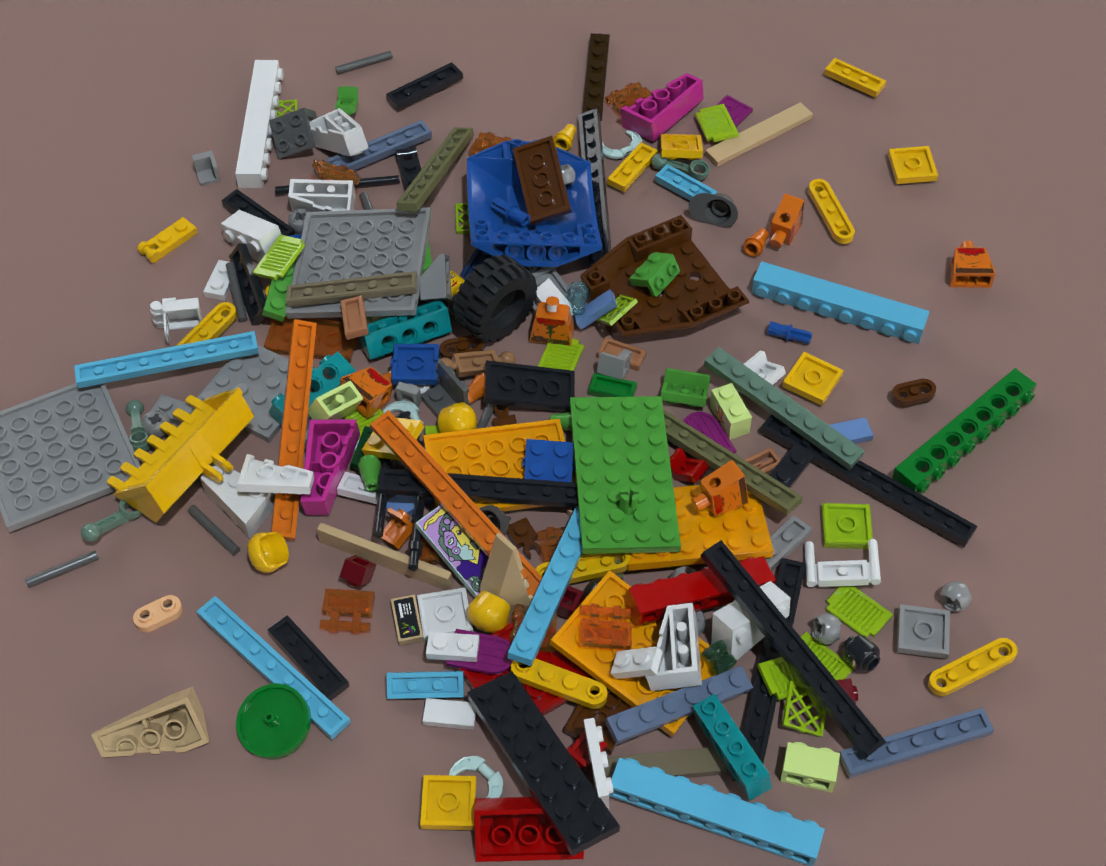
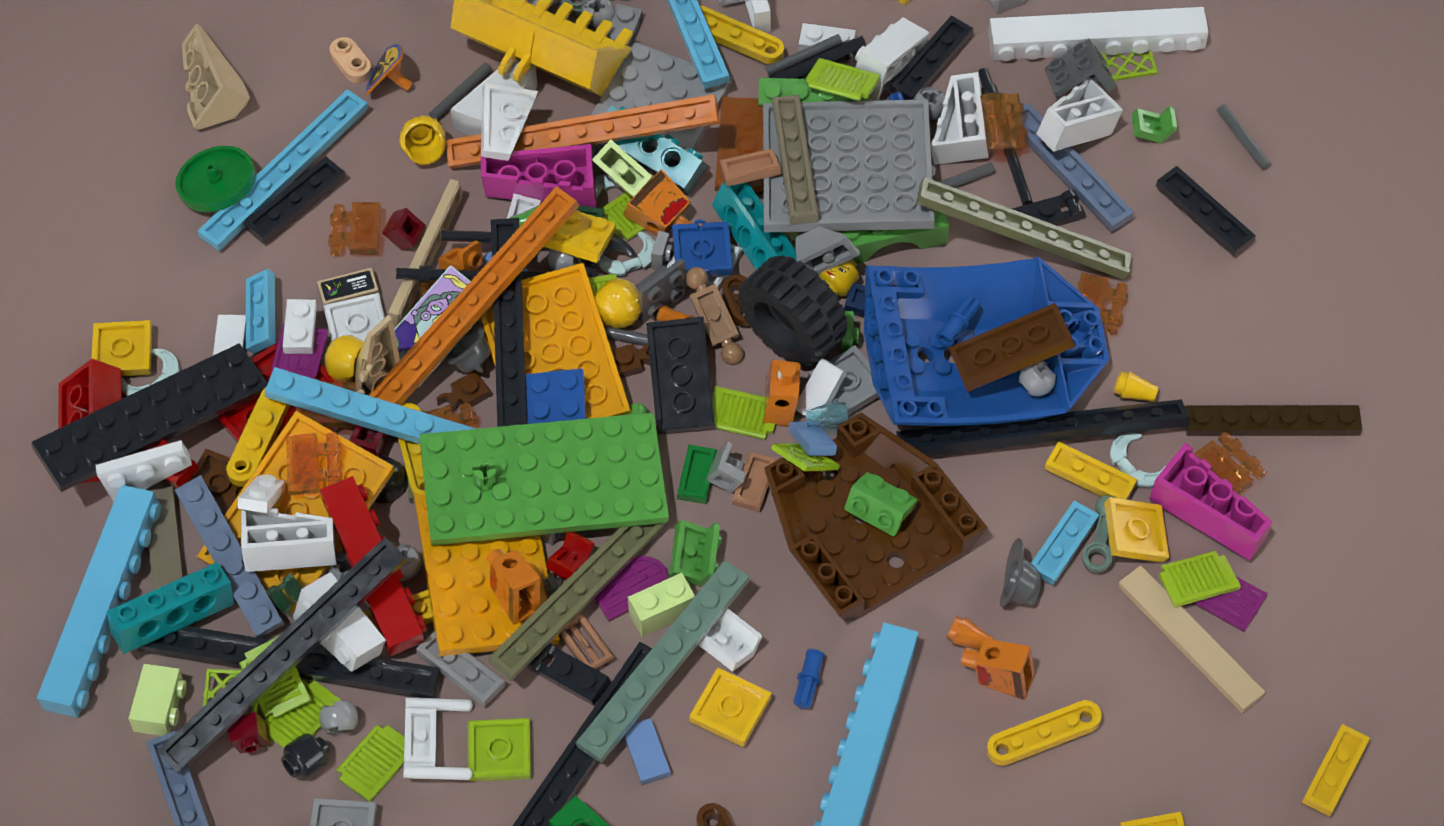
camera: 85 degrees right, 5 degrees up
(179, 577) = (389, 66): none -> shield

